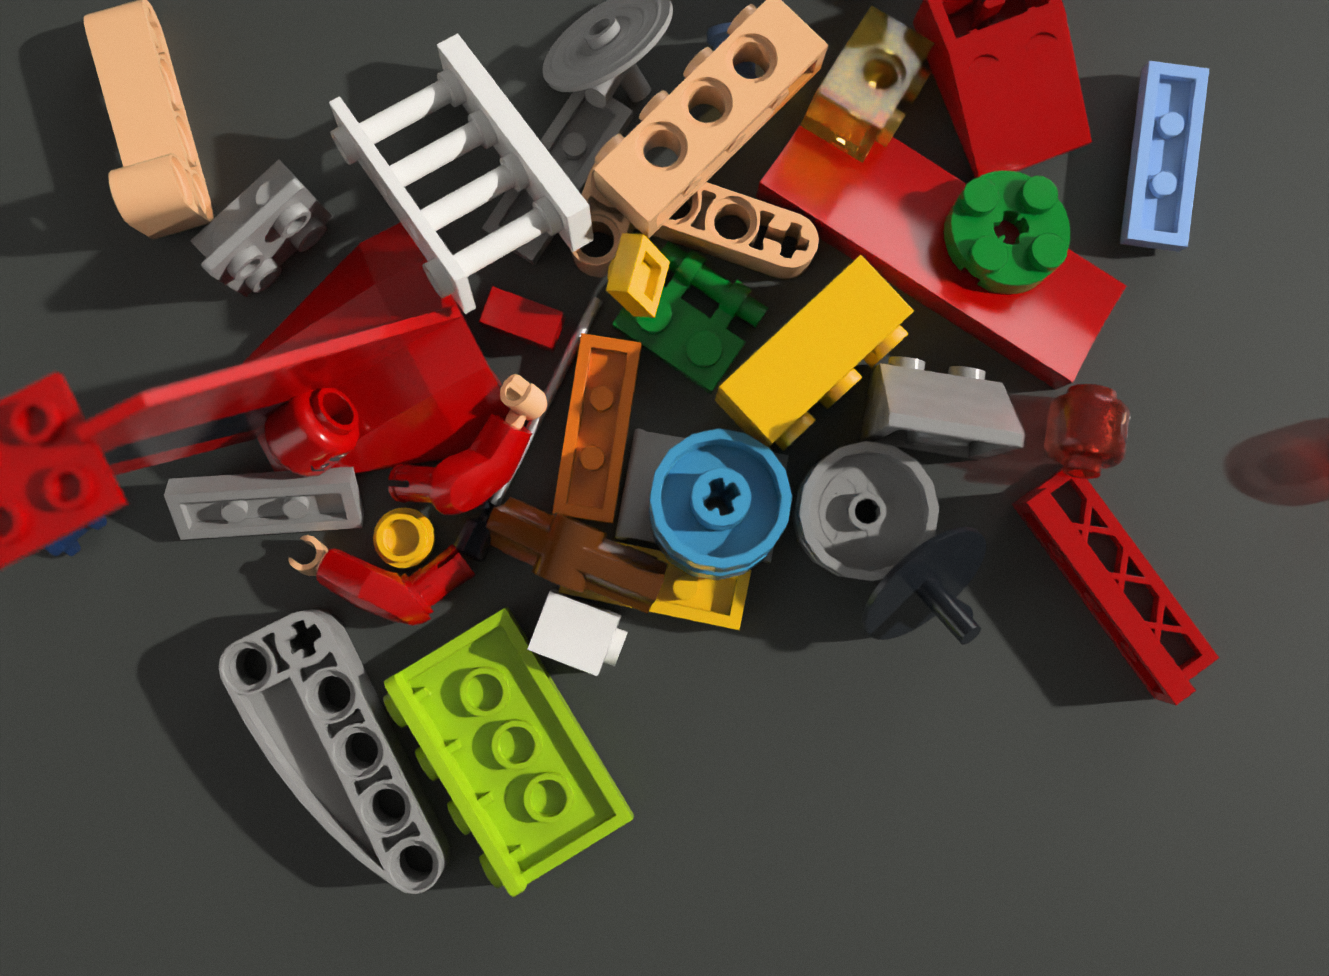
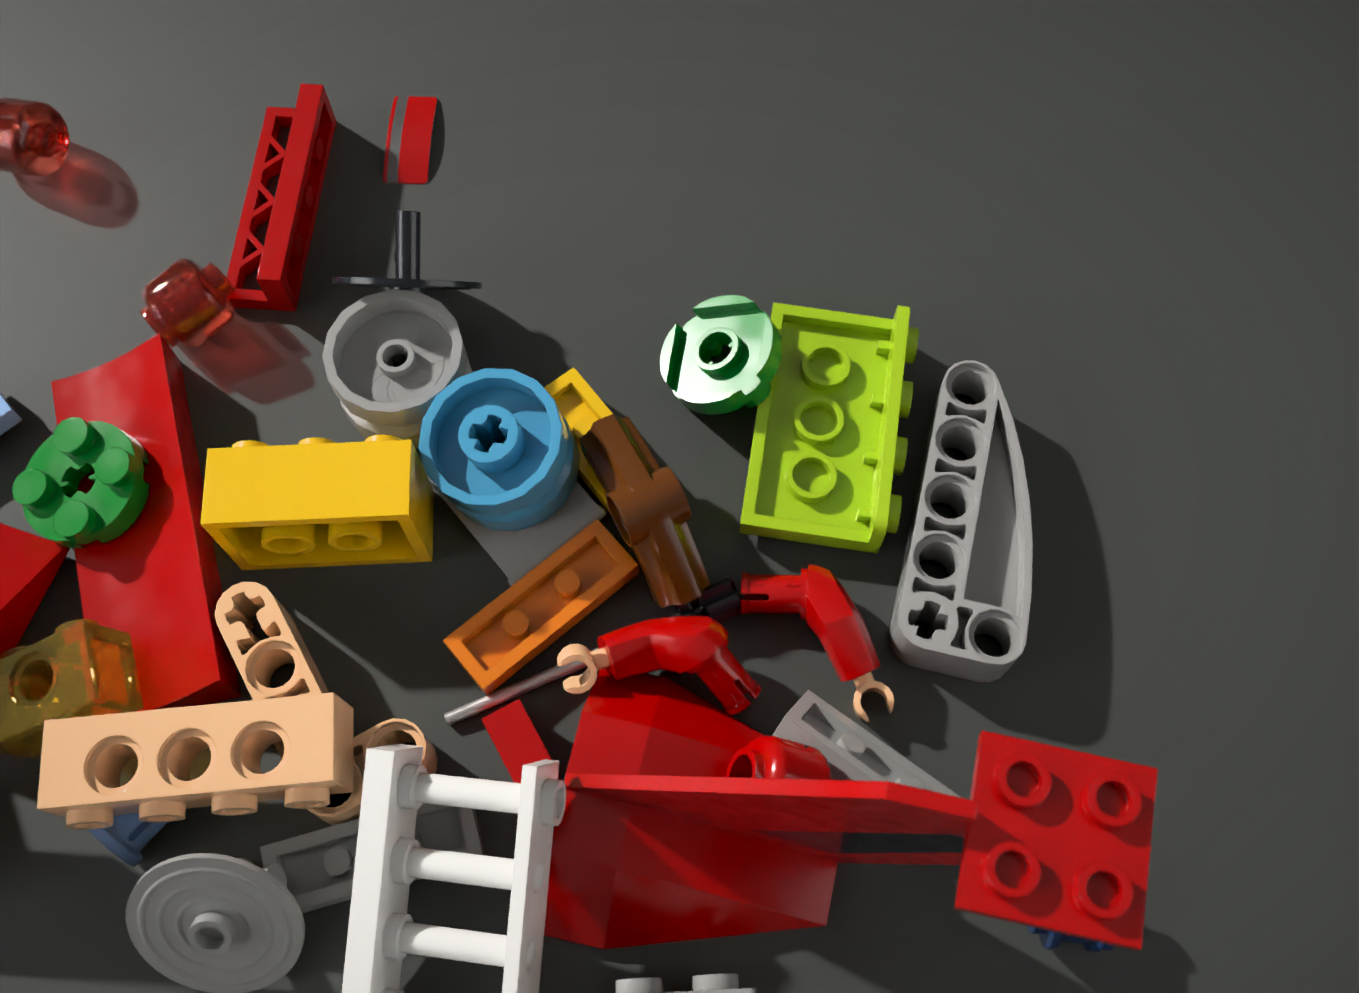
camera: 140 degrees left, 20 degrees down
(404, 537) = (778, 652): yellow plate -> none
(577, 633) = (701, 461): white brick -> none
(598, 732) = (739, 378): none -> plate
(637, 275) = (391, 687): yellow plate -> none
(684, 335) = (406, 632): green plate -> none
(939, 411) = (266, 371): light grey slope -> none
(1076, 733) = (409, 140): none -> red sticker

